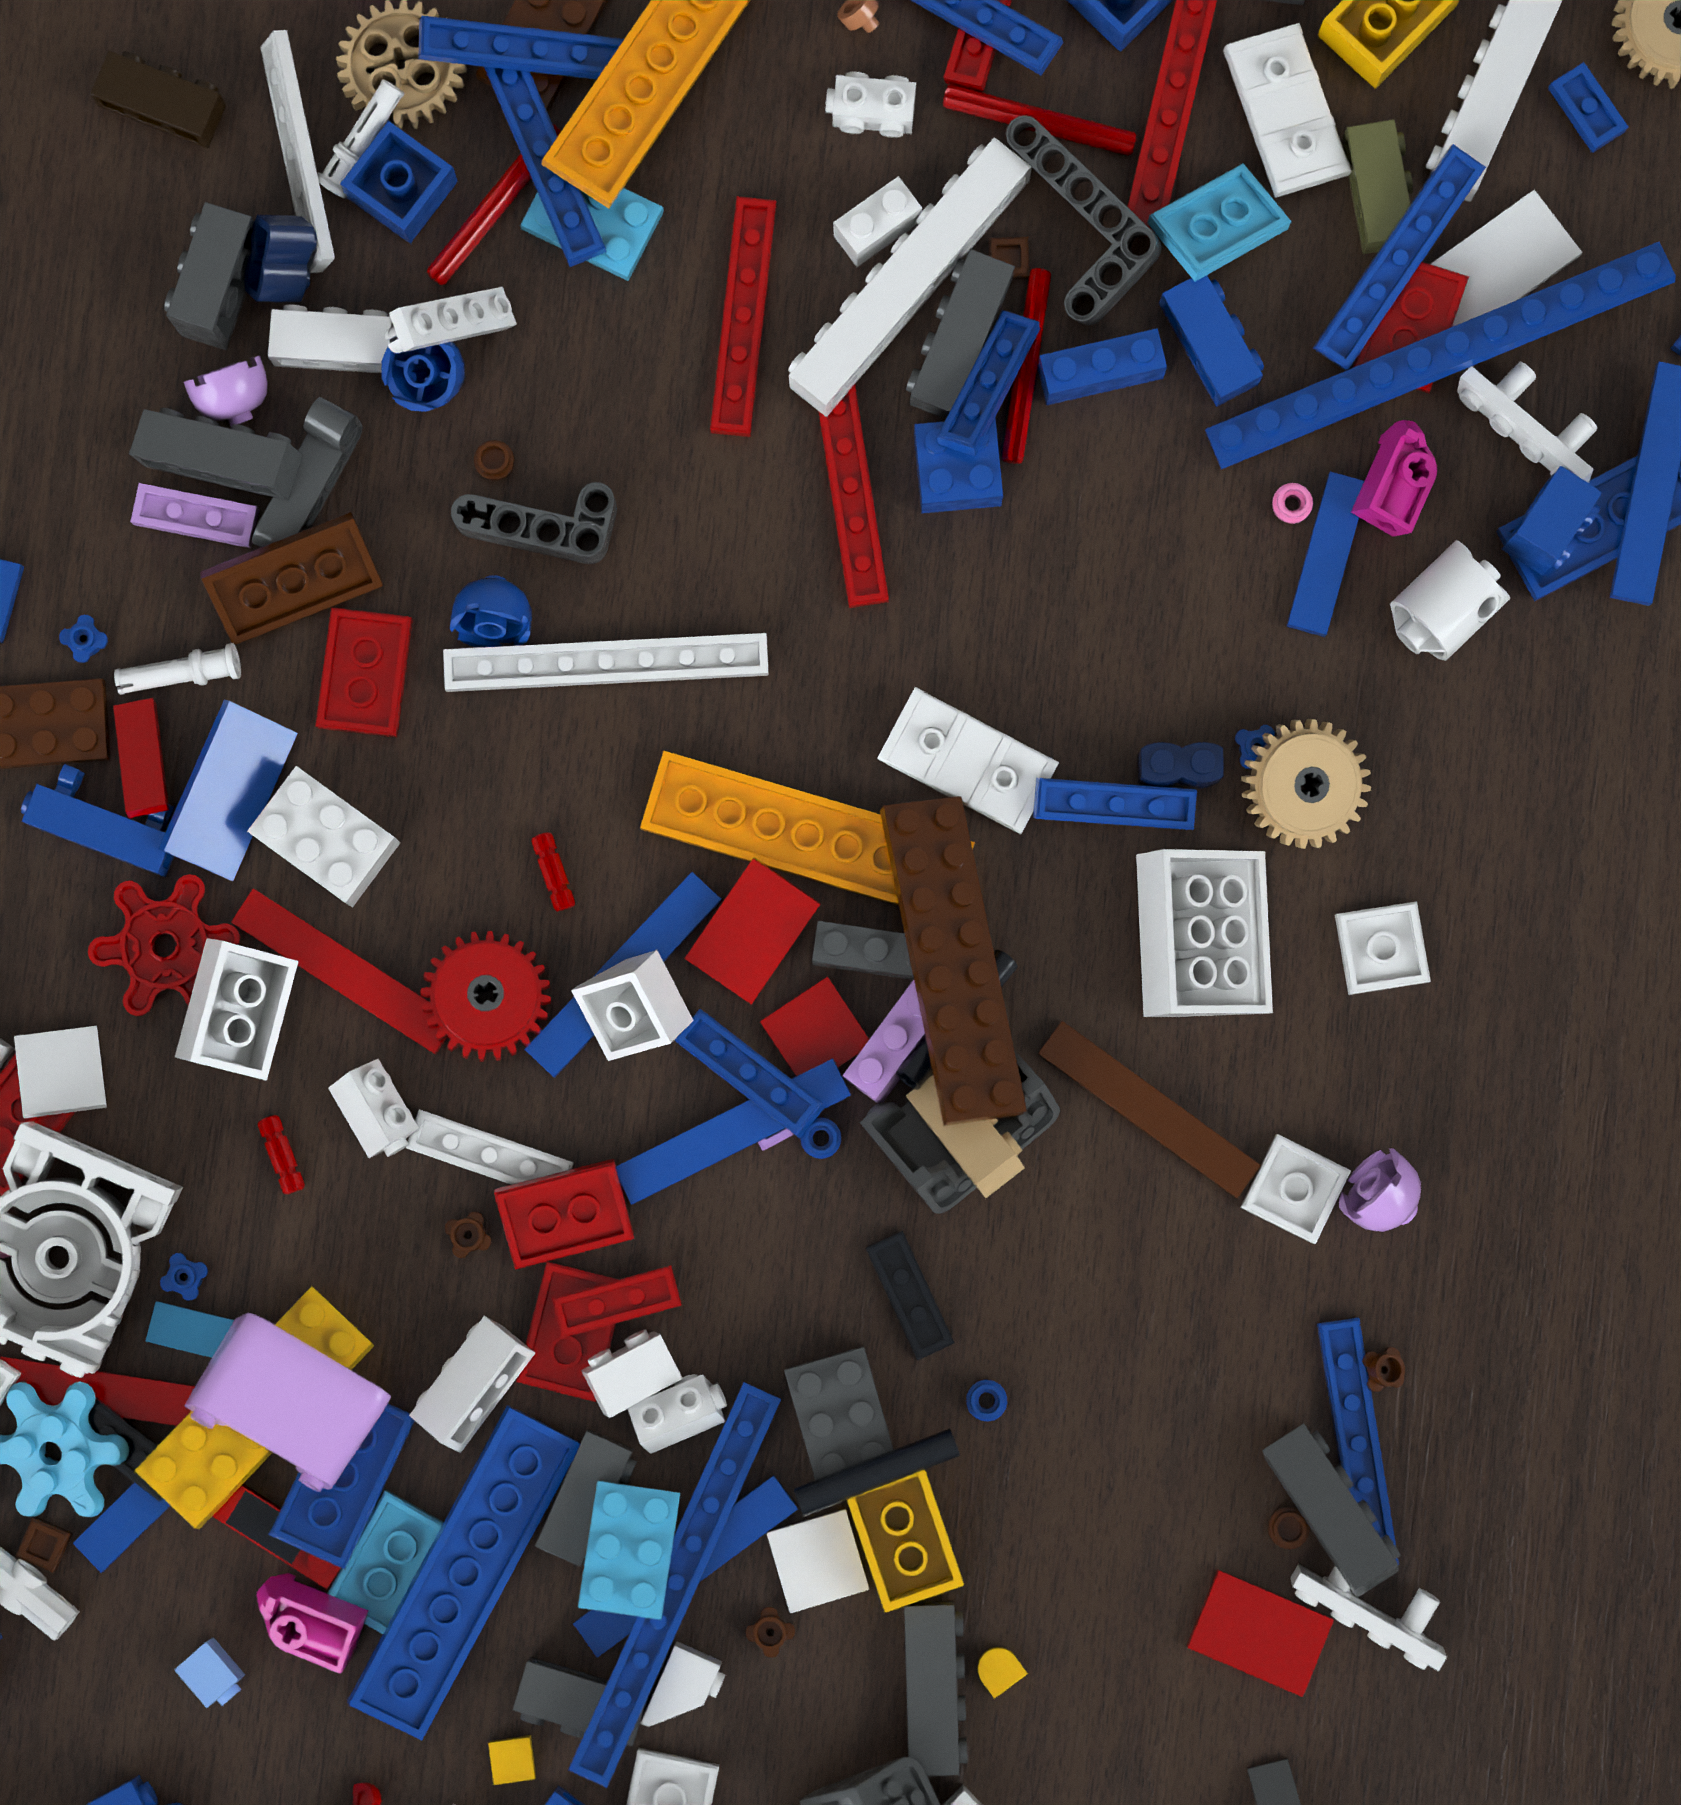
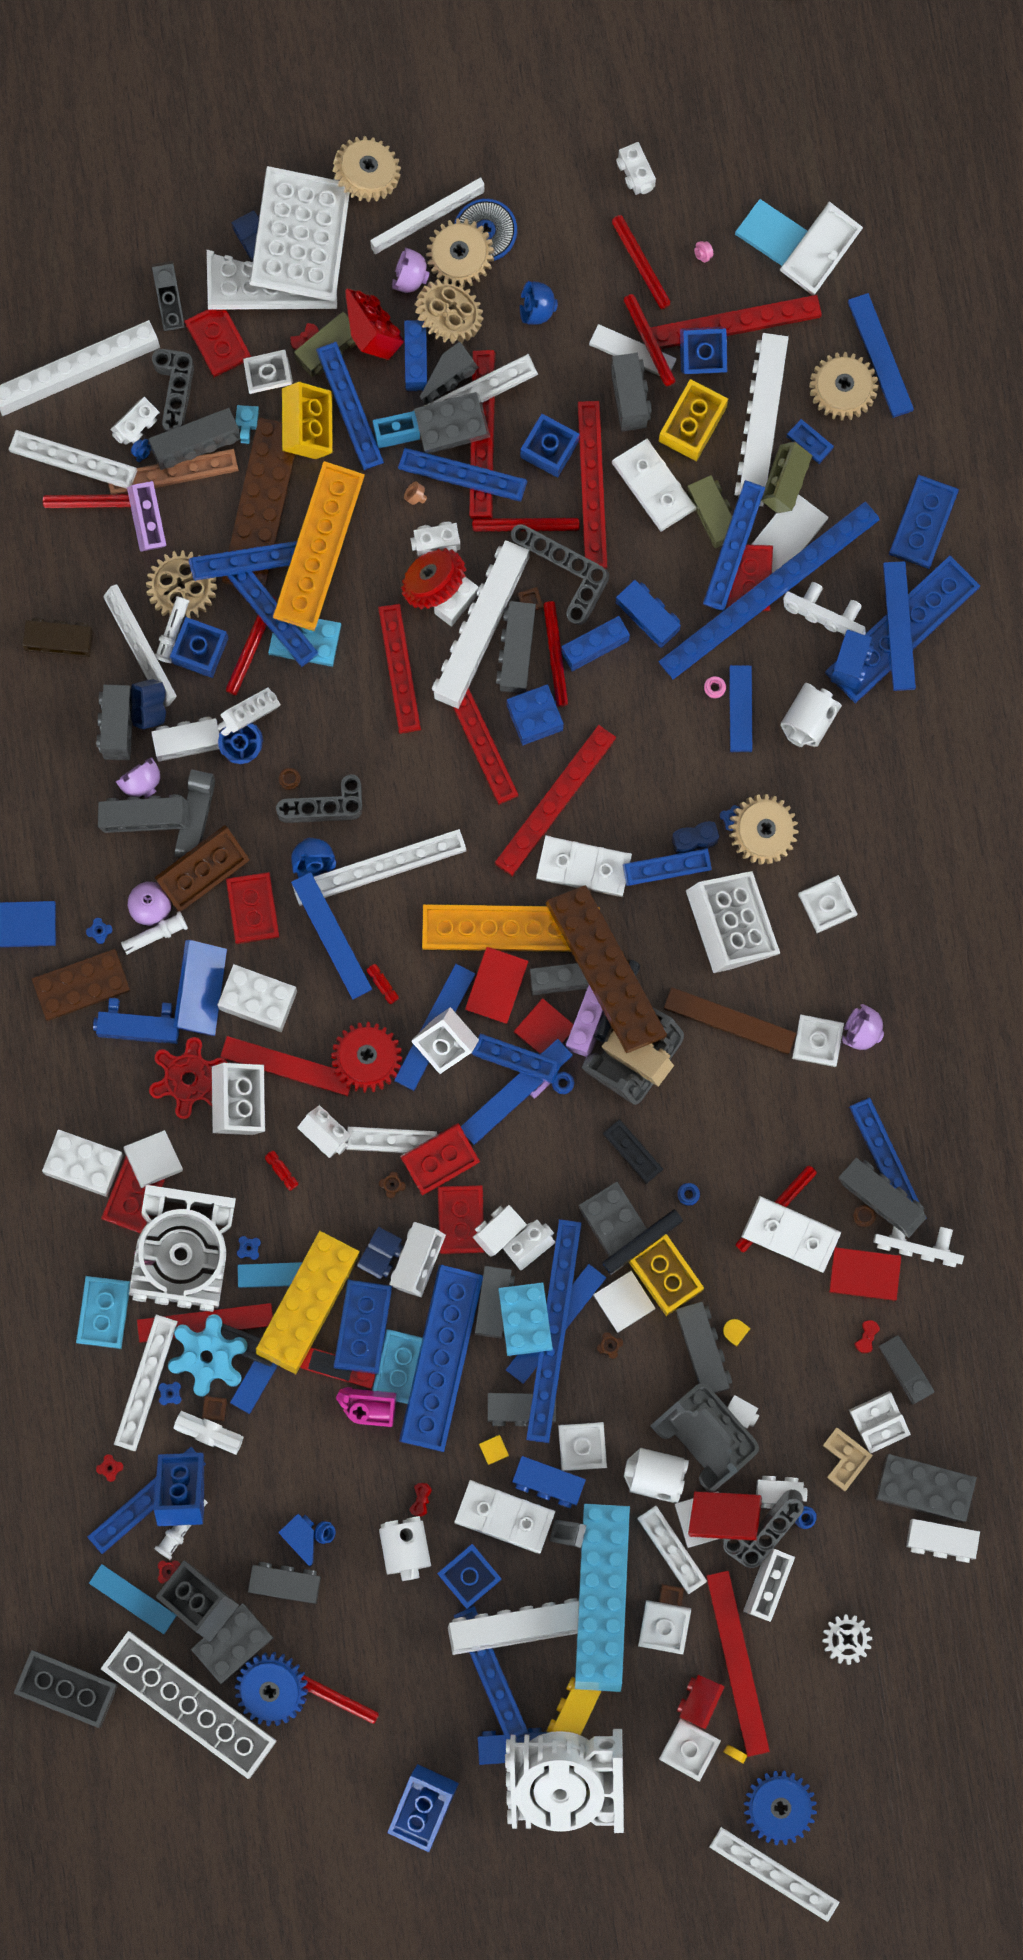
camera: 20 degrees left, 5 degrees down
(141, 758) = (148, 983): red tile -> none
(194, 515) = (139, 850): lavender plate -> none
(194, 628) = (152, 912): none -> lavender cylinder
(211, 1674) = (323, 1448): light blue brick -> none
(287, 1399) = (326, 1287): lavender windscreen -> none
(411, 1353) = (380, 1253): none -> dark blue brick
(486, 761) = (331, 935): none -> blue tile
(616, 1301) = (480, 1196): red tile -> none
(684, 1684) = (572, 1384): white slope -> none
(846, 171) = (433, 578): none -> red gear
(951, 628) = (555, 800): none -> red plate
(988, 383) = (539, 667): blue tile -> none
(1134, 1470) = (785, 1198): none -> red axle
(1148, 1526) = (791, 1234): none -> white container
(1218, 222) = (635, 552): medium azure tile -> none
(1223, 1759) = (870, 1329): none -> red piece
(1394, 1369) = (894, 1116): reddish brown plate -> none
(1397, 480) = (766, 660): dark pink piece -> none
(1528, 160) = (786, 477): none -> olive brick

